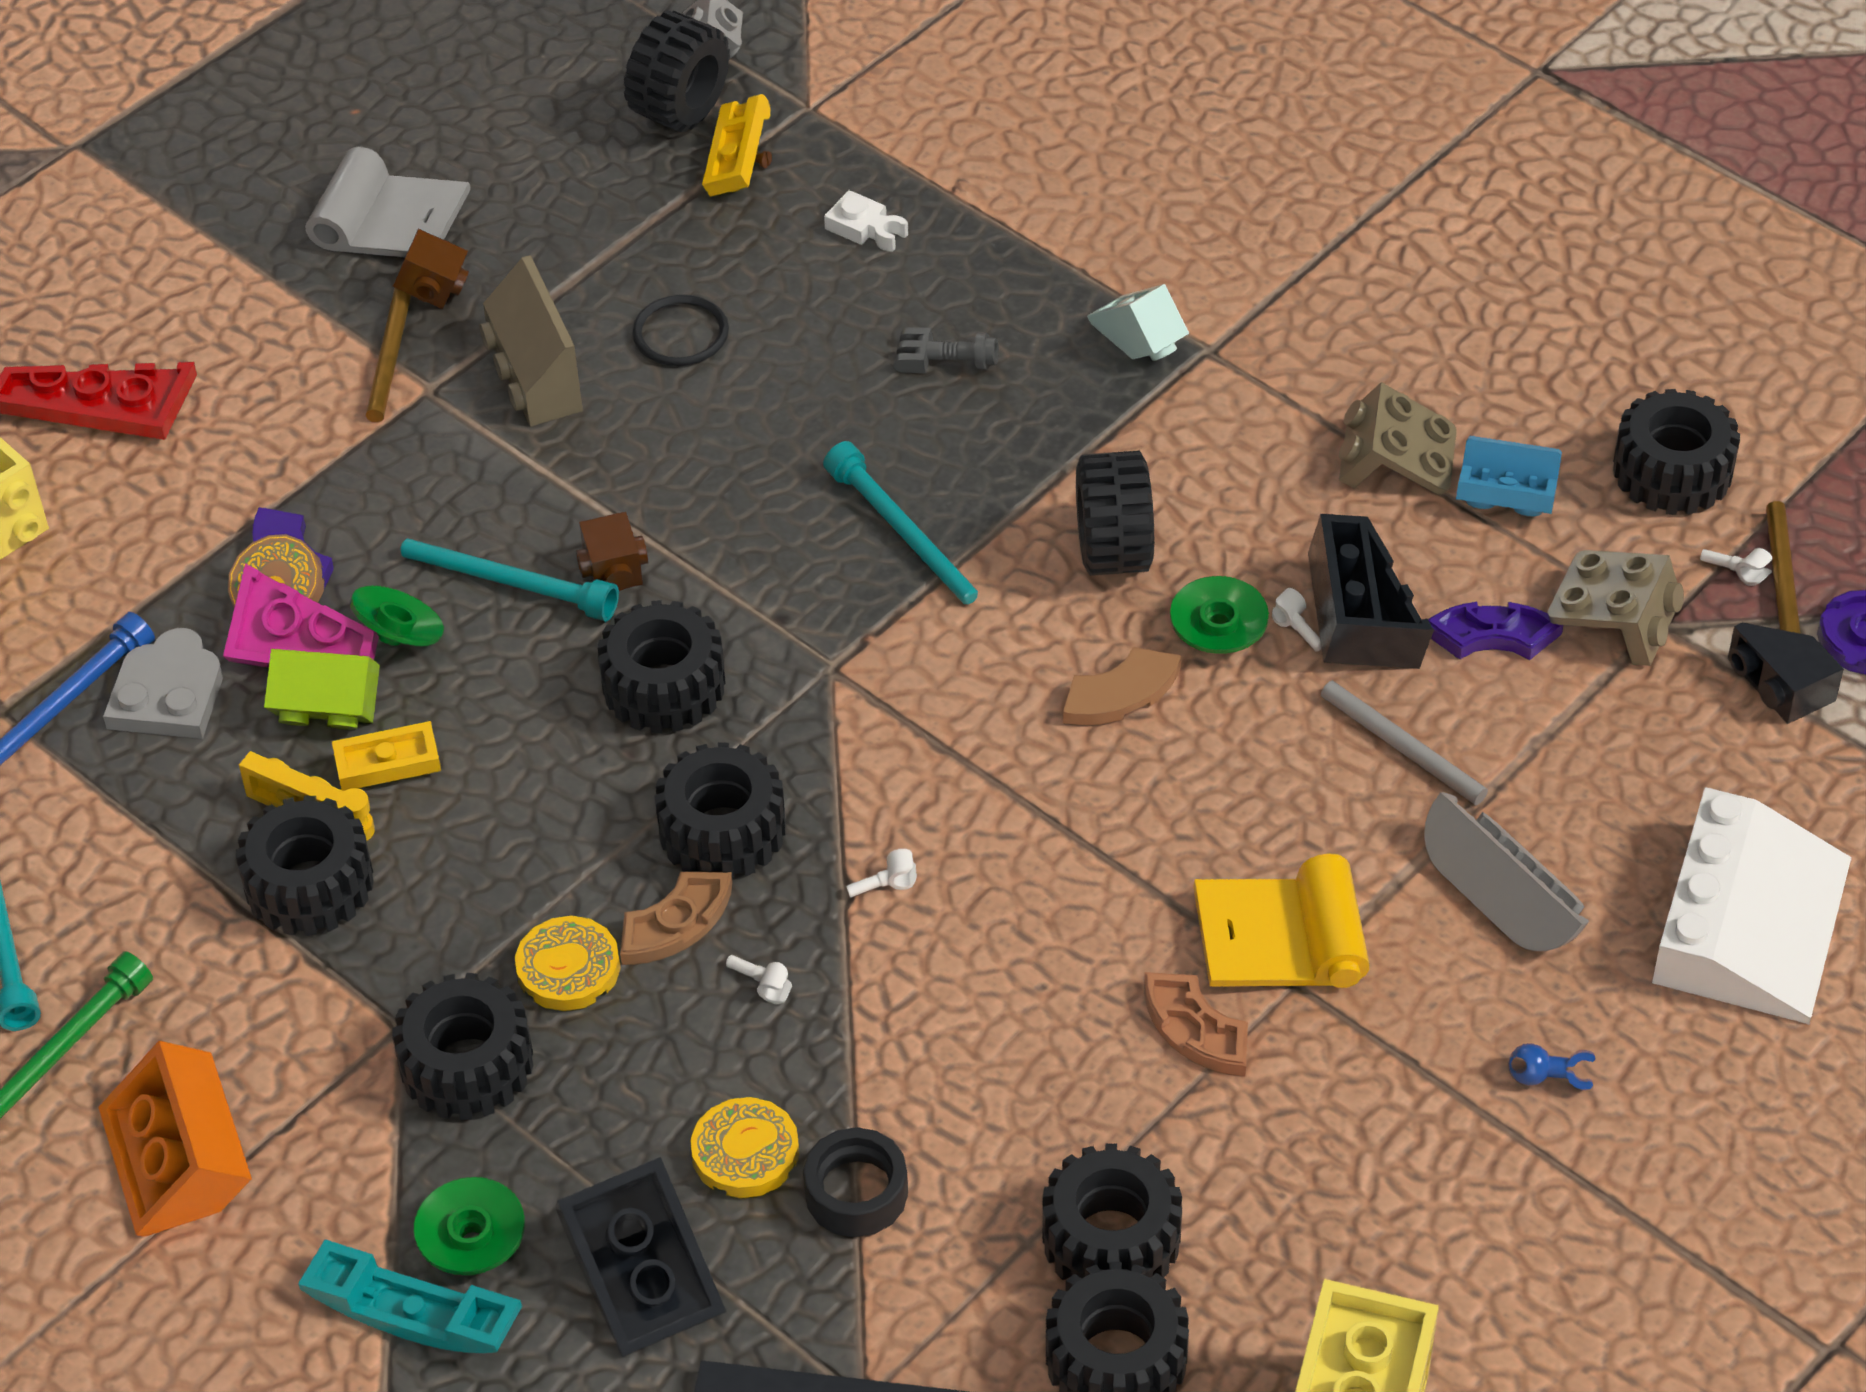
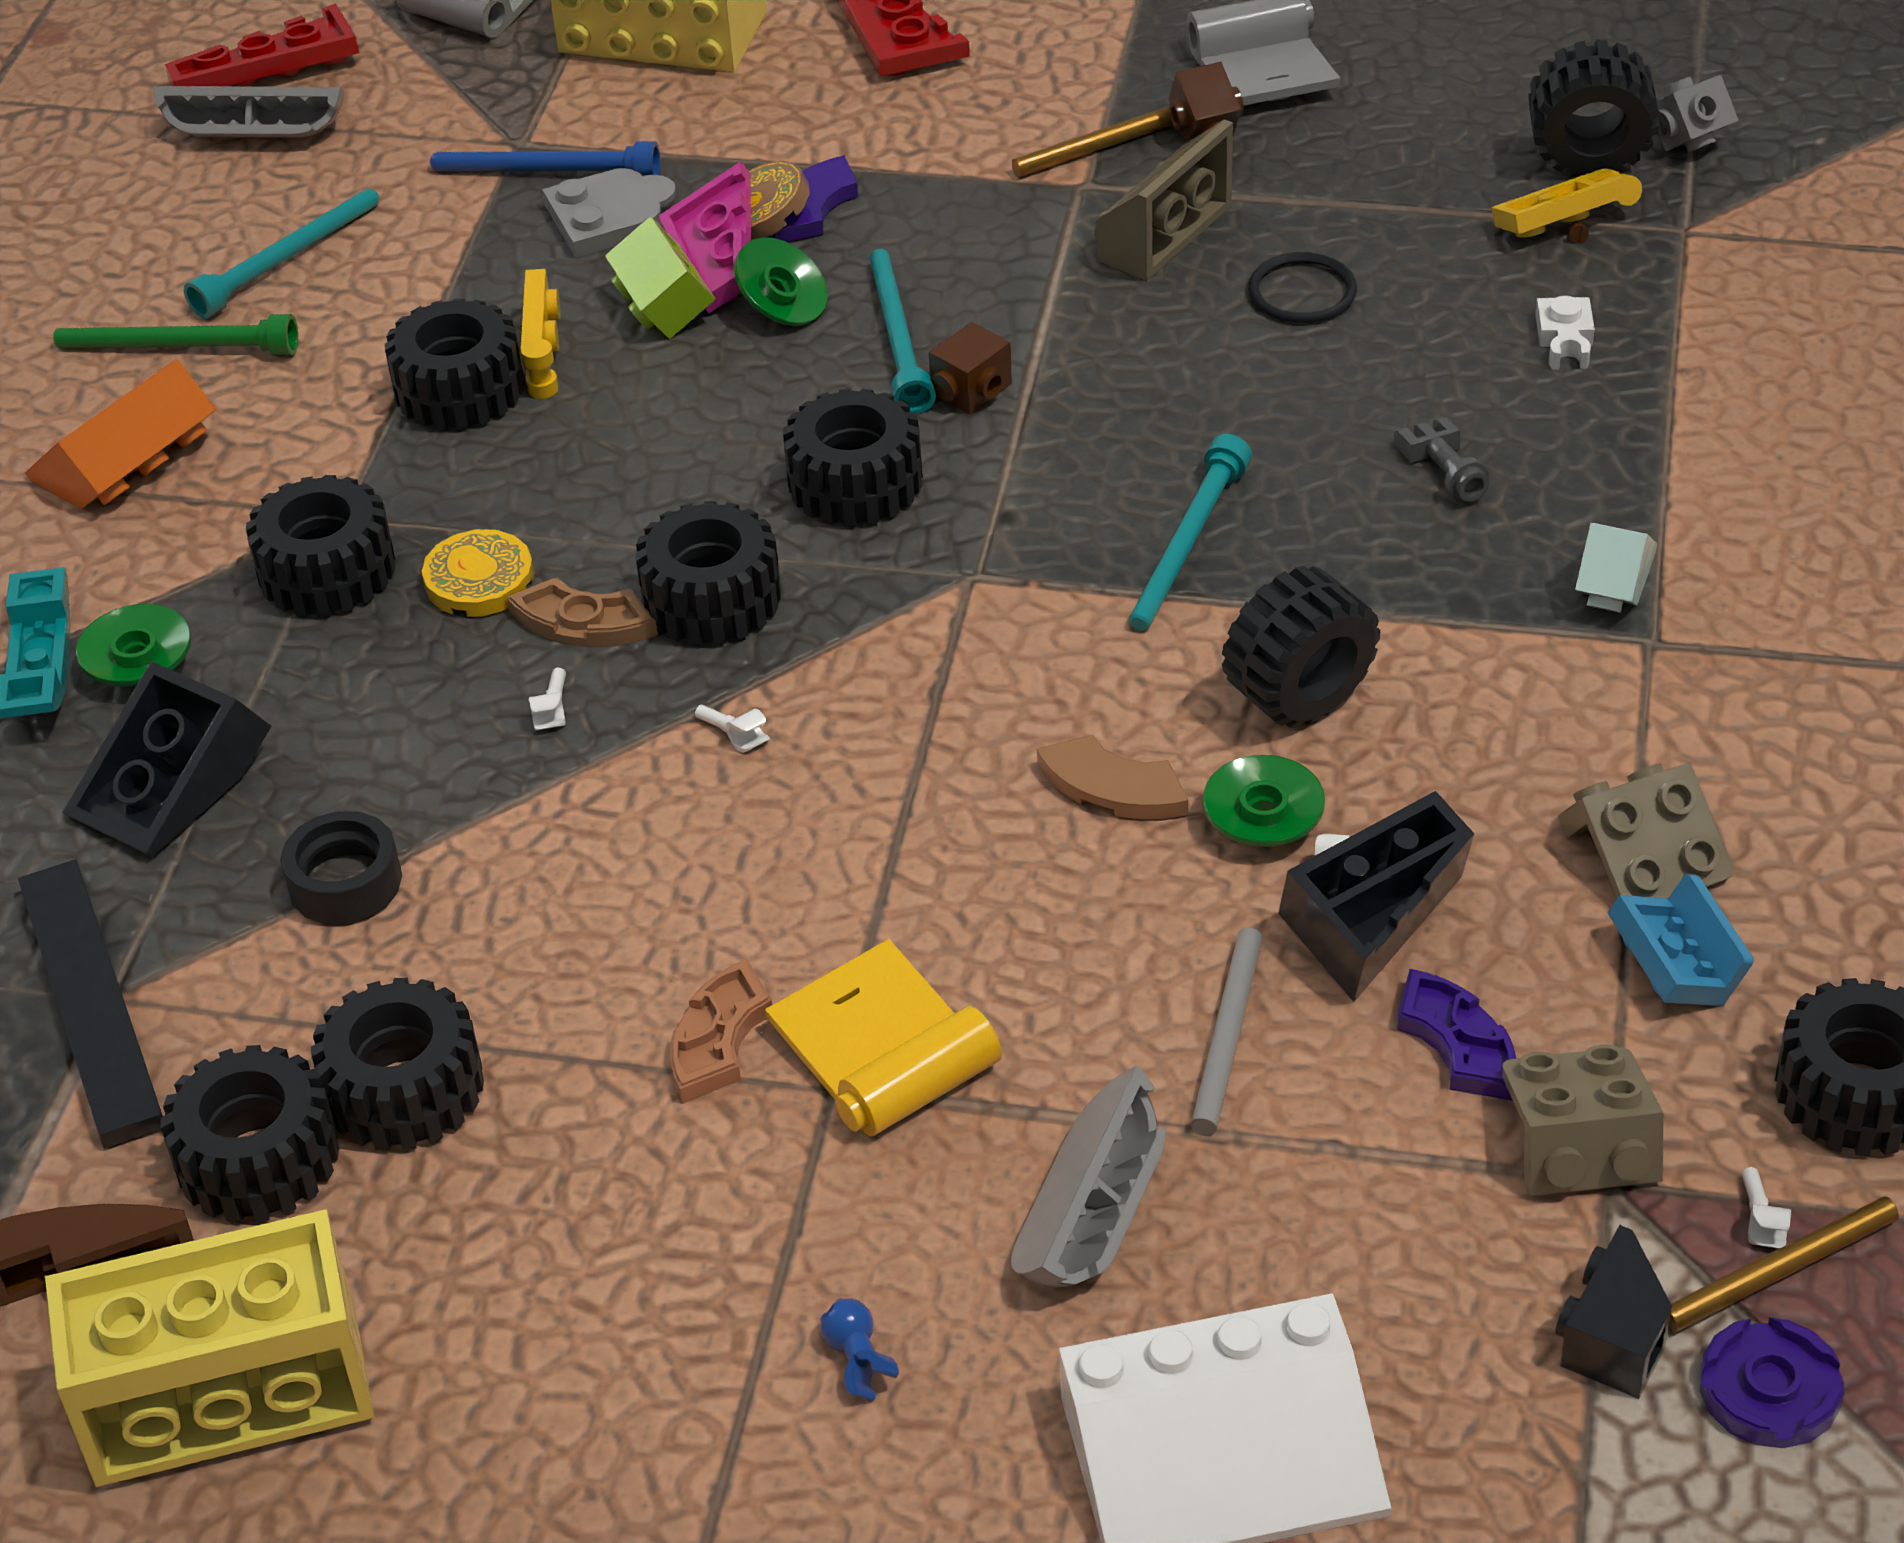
camera: 60 degrees right, 5 degrees down
(386, 756) = (624, 356): yellow plate -> none
(744, 1147) = (344, 775): tile -> none

